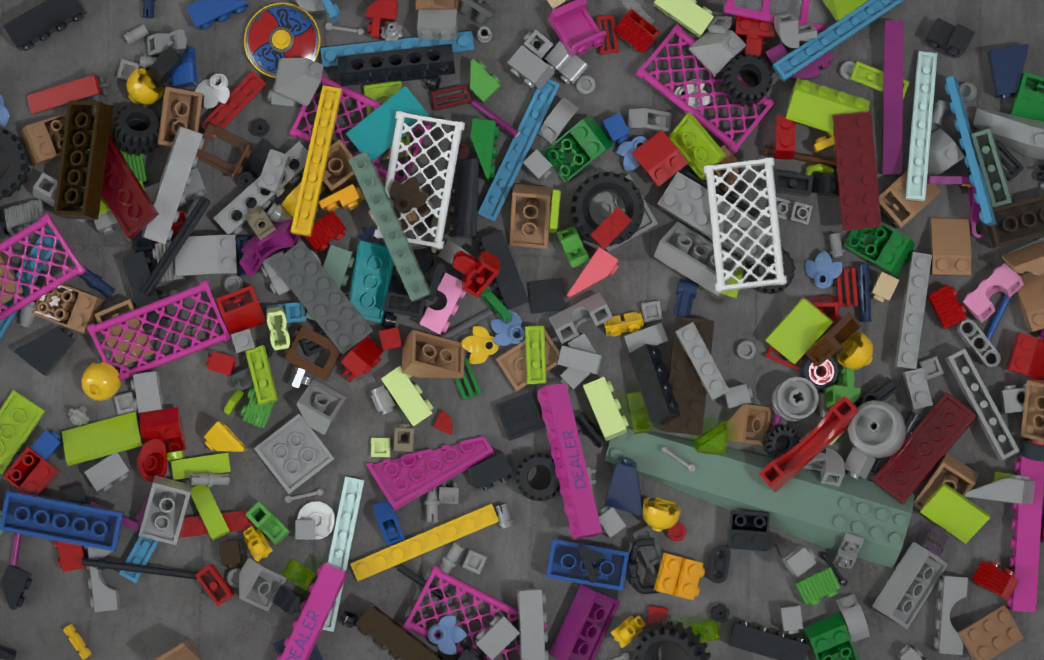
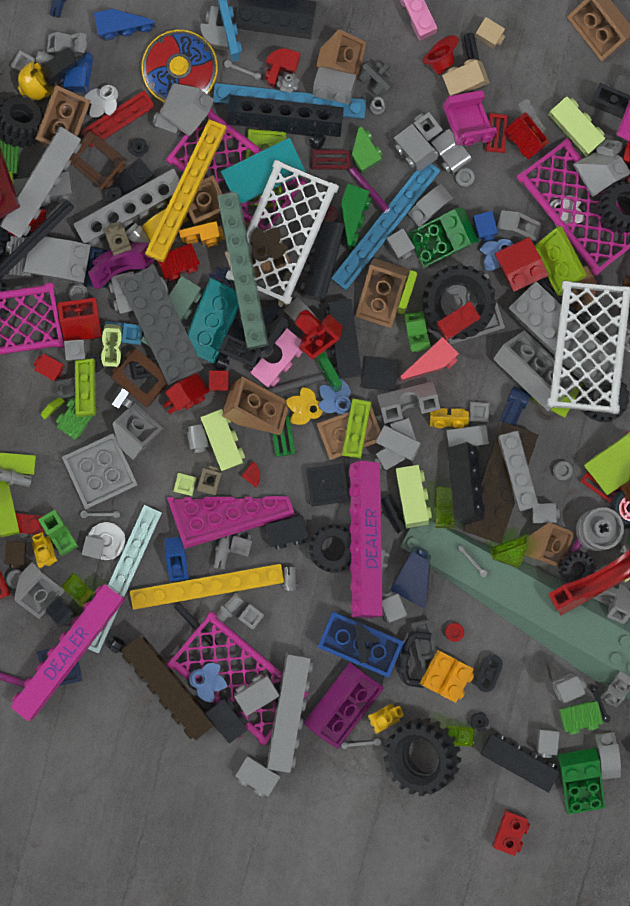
camera: 15 degrees right, 0 degrees up
(136, 34) = (39, 29): light grey pin -> none
(223, 439) = (34, 441): yellow slope -> none
(273, 171) = (142, 191): light grey brick -> none
(656, 614) = (416, 708): red tile -> none
(660, 513) = (443, 611): yellow cylinder -> none
(748, 530) = (525, 647): black slope -> none

